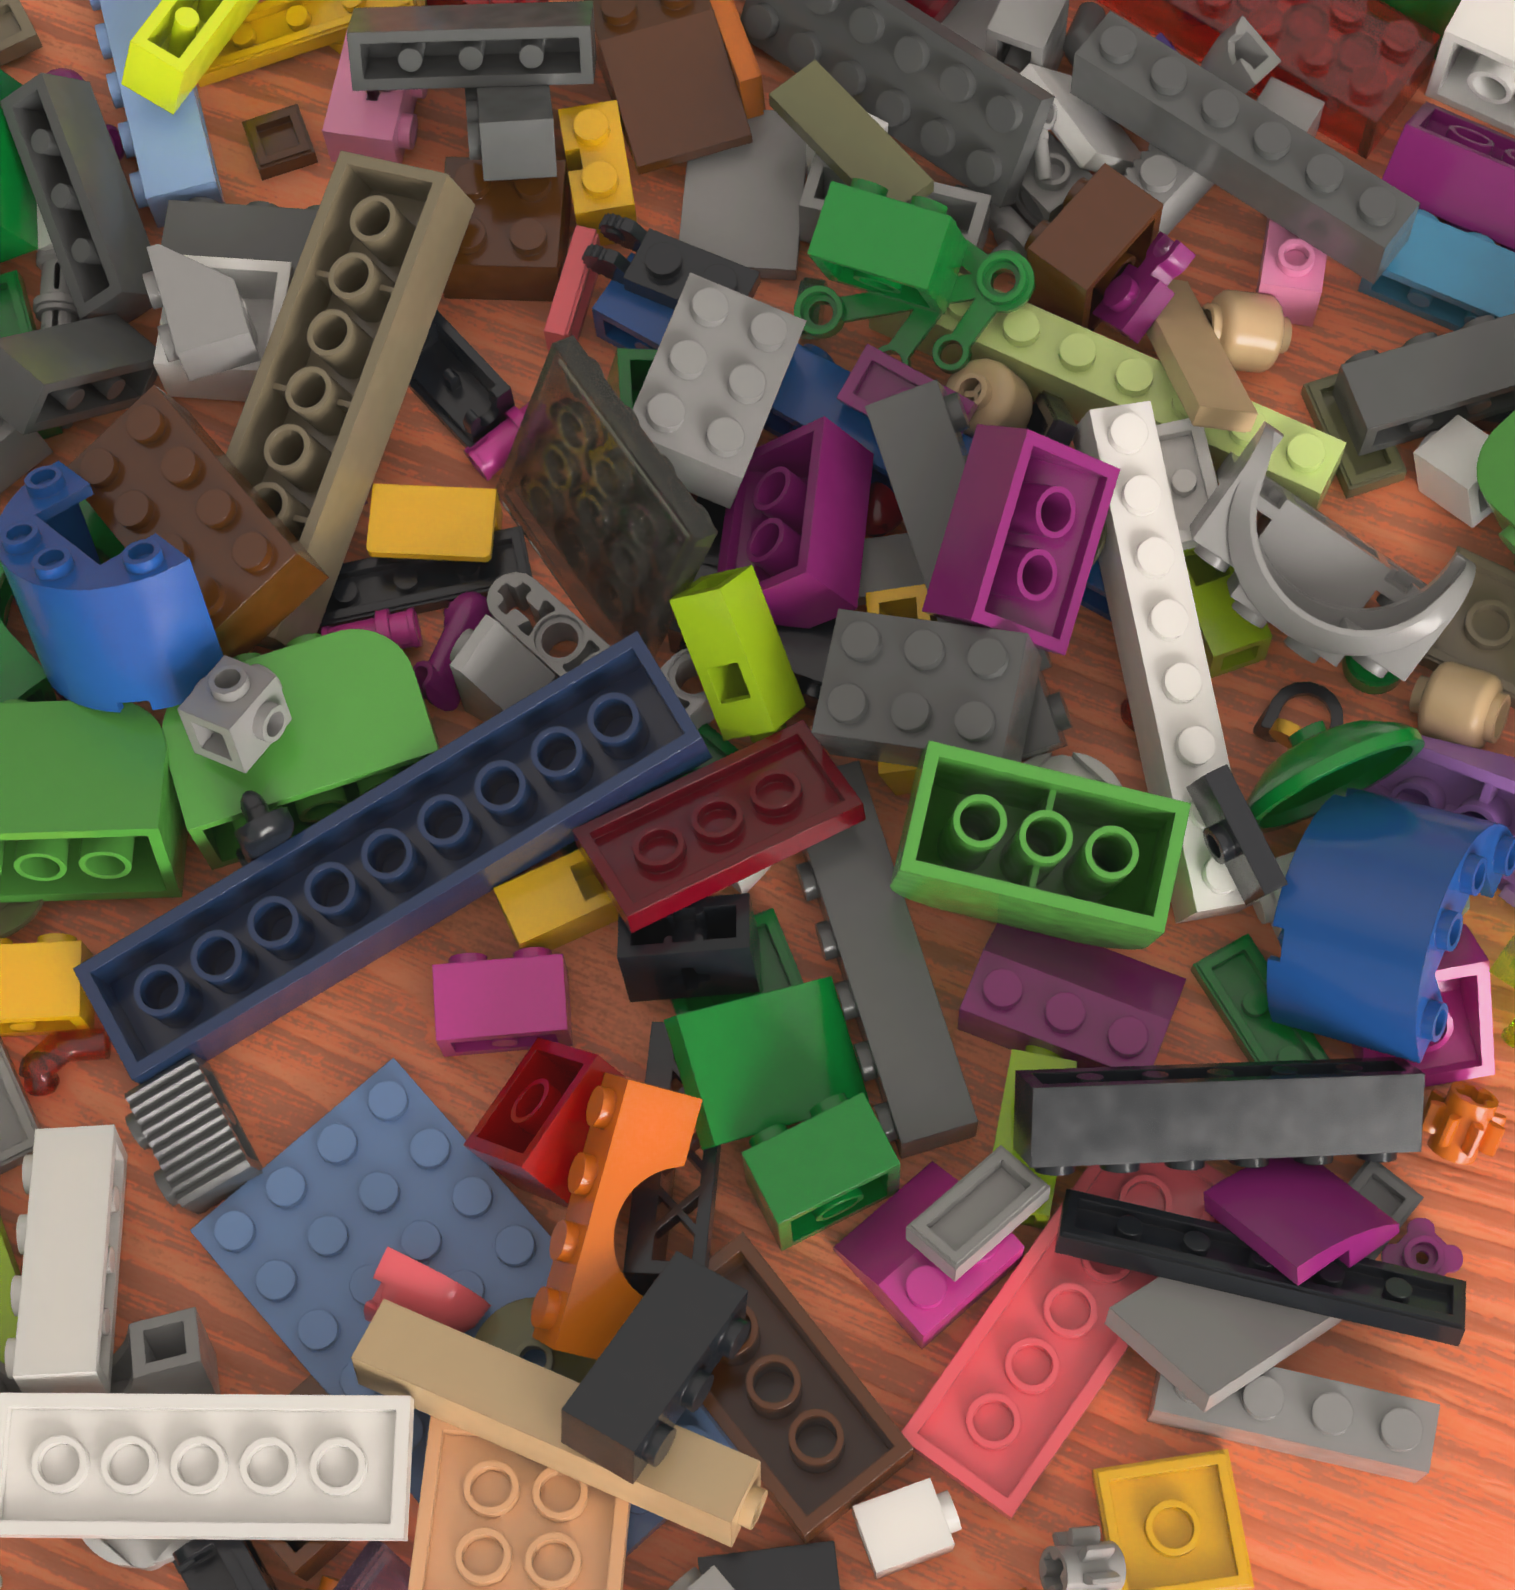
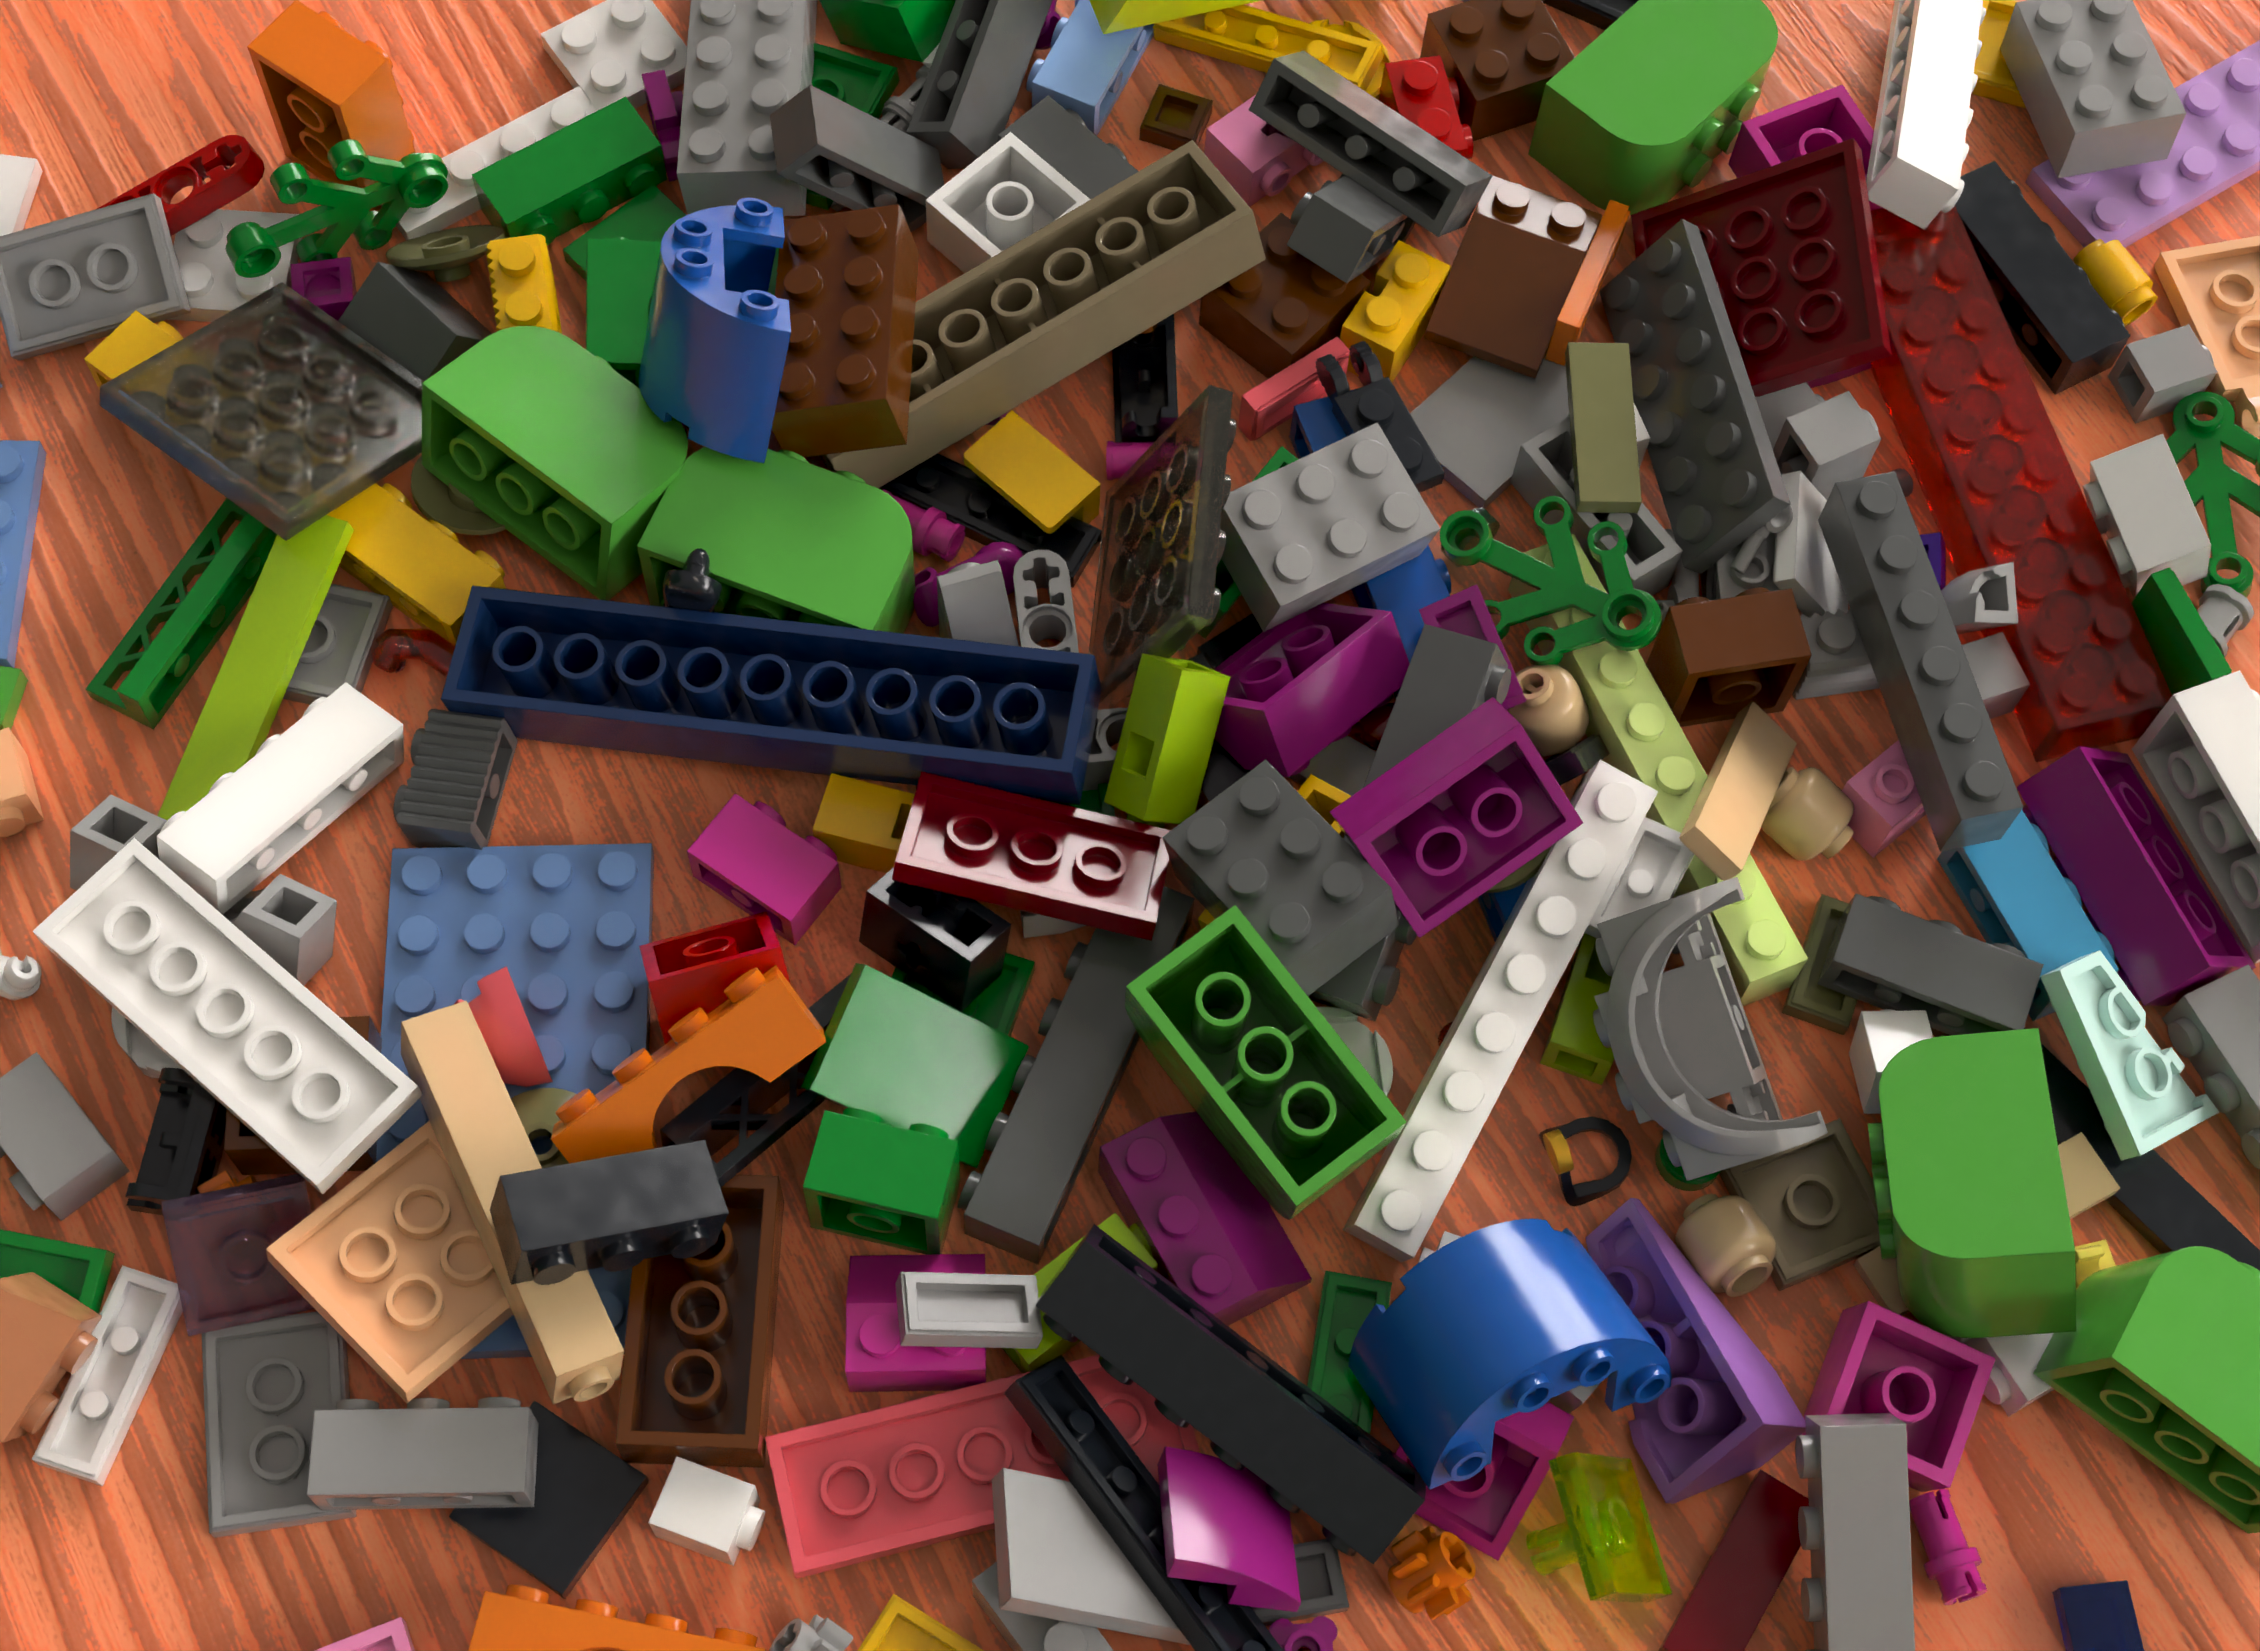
camera: 30 degrees right, 5 degrees down
(203, 314) = (987, 189): light grey slope -> none
(235, 713) = (740, 482): light grey brick -> none
(888, 244) = (1552, 516): green brick -> none
(1142, 293) = (1740, 715): magenta plate -> none
(1235, 836) = (1427, 1182): black plate -> none
(1327, 764) = (1561, 1190): green dish -> none

